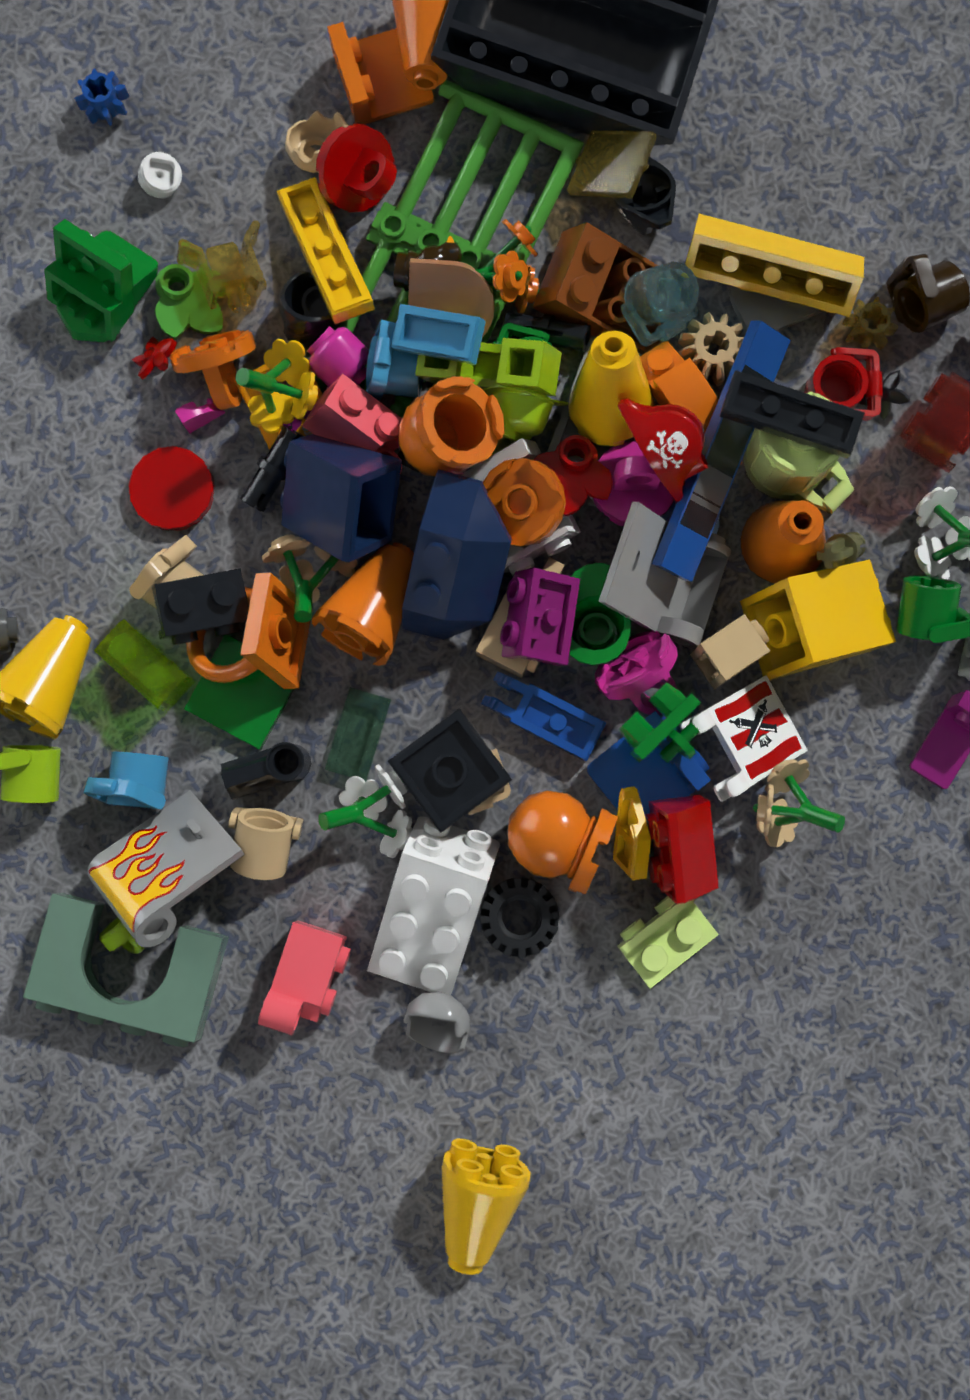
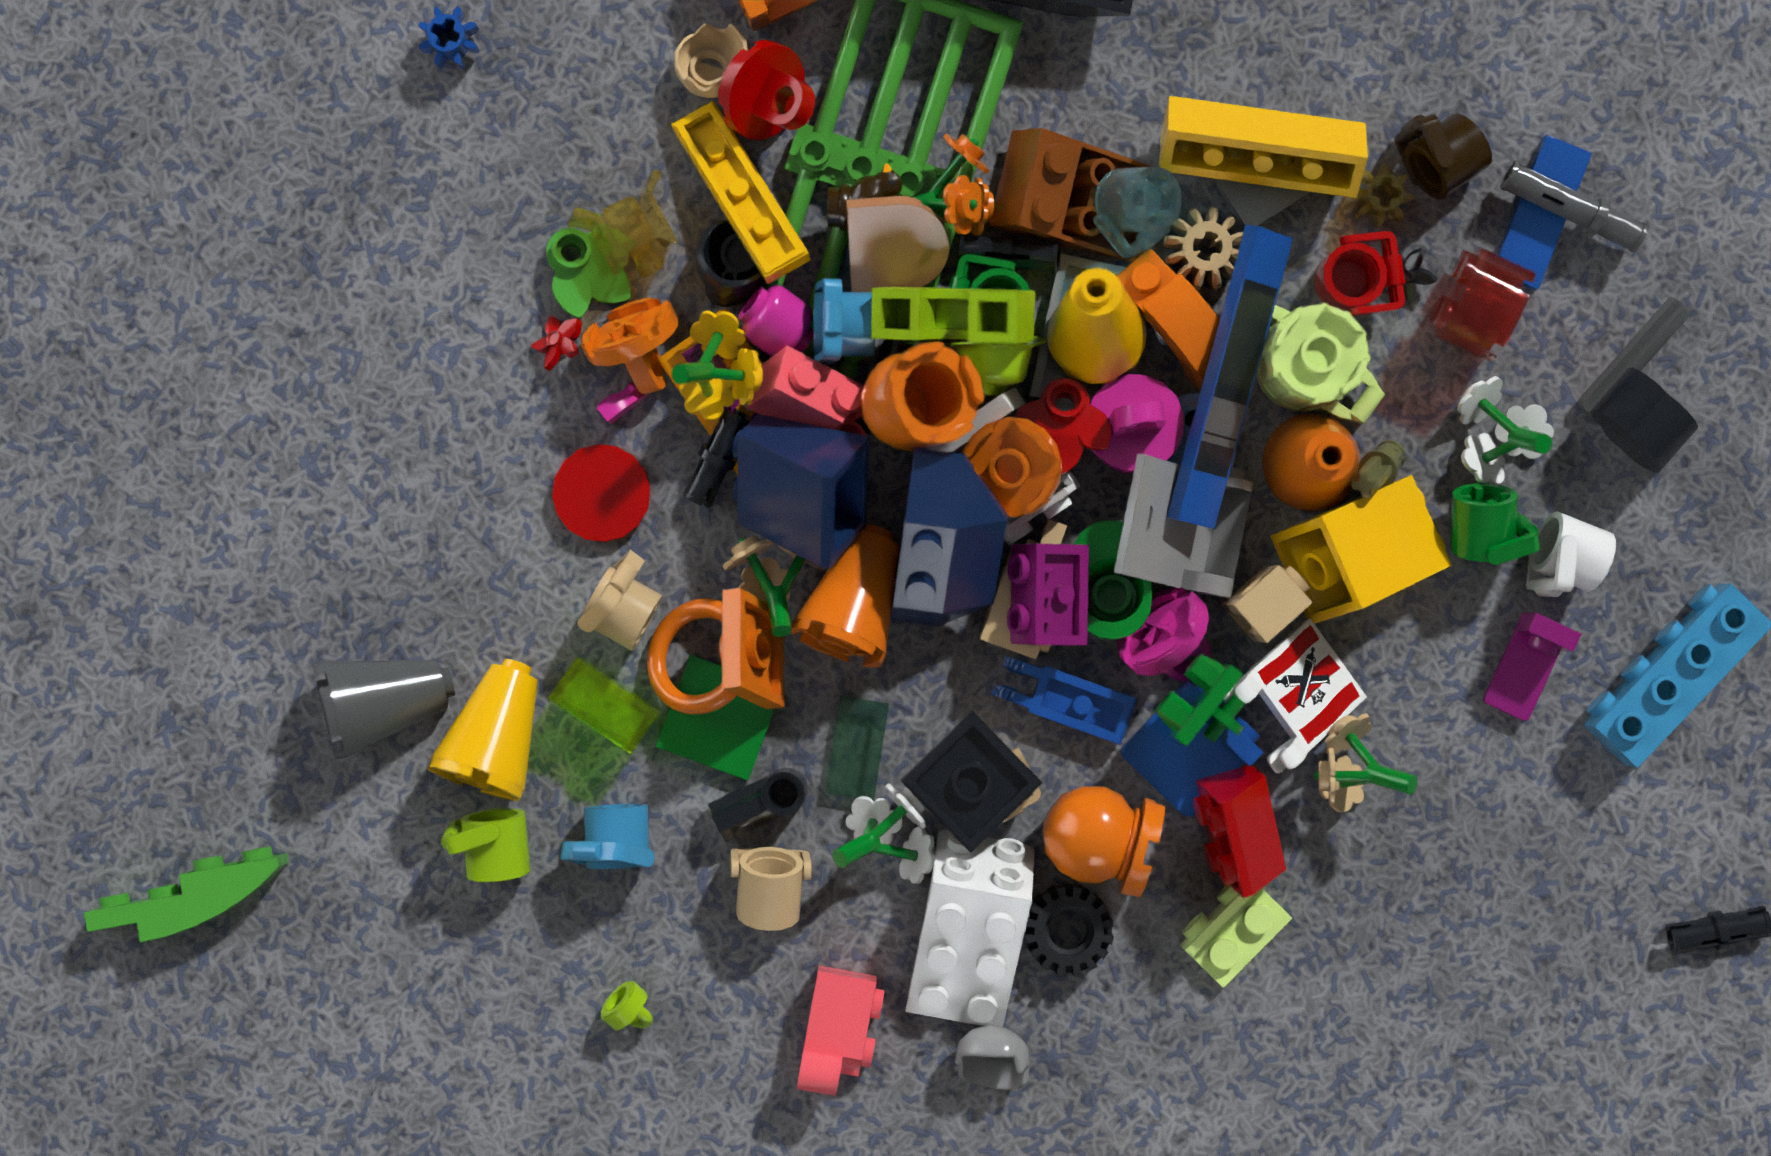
camera: 15 degrees left, 5 degrees up
(65, 977) = (571, 1070): sand green arch -> none
(96, 281) = (480, 263): green piece -> none
(159, 175) = (530, 122): white tile -> none
(161, 866) = (662, 929): light grey door -> none
(201, 605) = (663, 630): black bracket -> none
(438, 334) = (893, 292): dark azure tile -> none
(612, 163) = (1060, 48): clear yellow piece -> none
(631, 835) = (1182, 823): yellow tile -> none
(652, 201) = (1100, 74): black hat -> none
(670, 441) = (1169, 380): red hat -> none
(792, 414) = (1305, 336): black tile -> none

